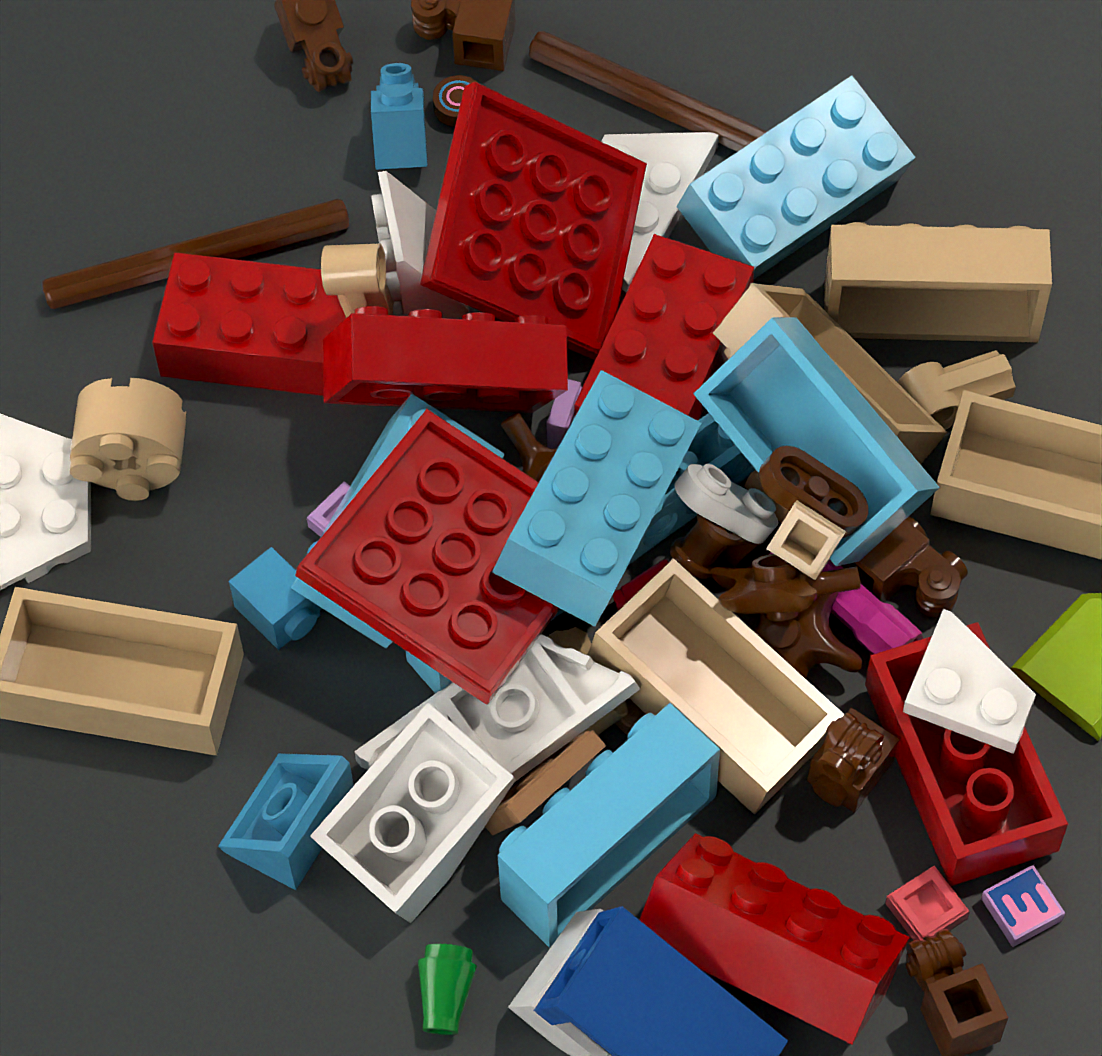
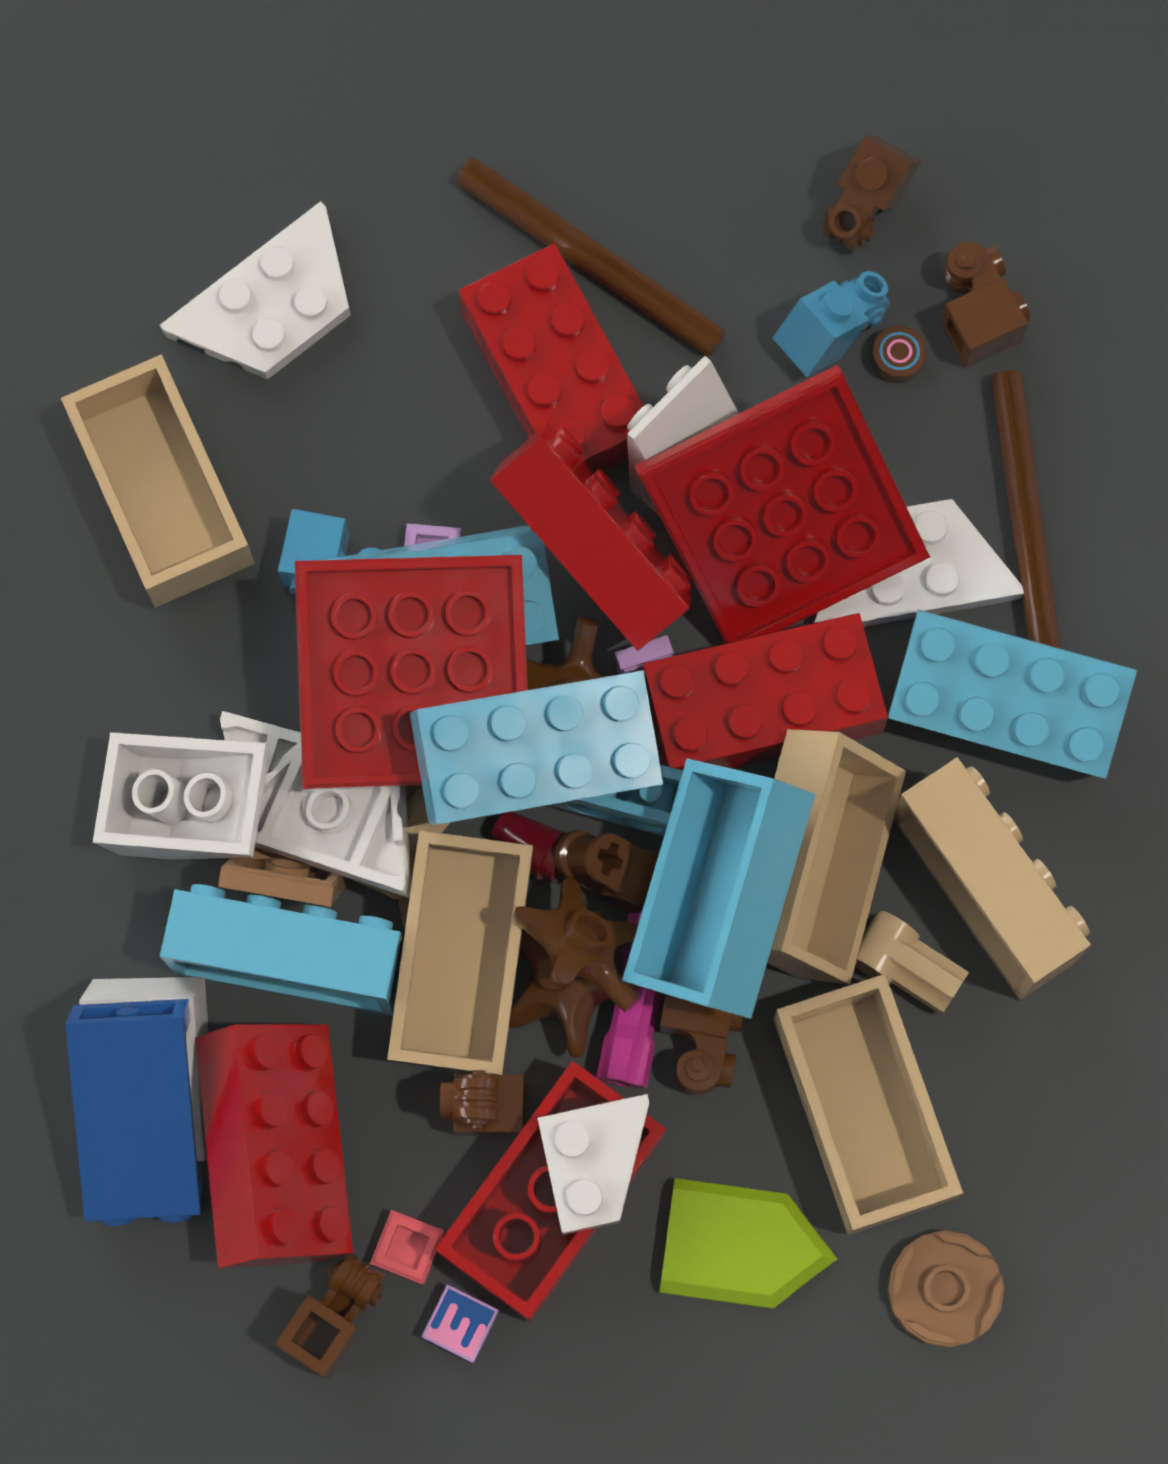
camera: 55 degrees right, 15 degrees up
(128, 437) = (365, 335): tan brick -> none
(284, 812) = (138, 698): dark azure slope -> none
(356, 276) = (598, 413): tan piece -> none
(445, 985) = (79, 919): green cone -> none
(727, 504) = (625, 847): white plate -> none
(795, 475) = (659, 917): reddish brown plate -> none
(806, 540) = (611, 943): tan slope -> none

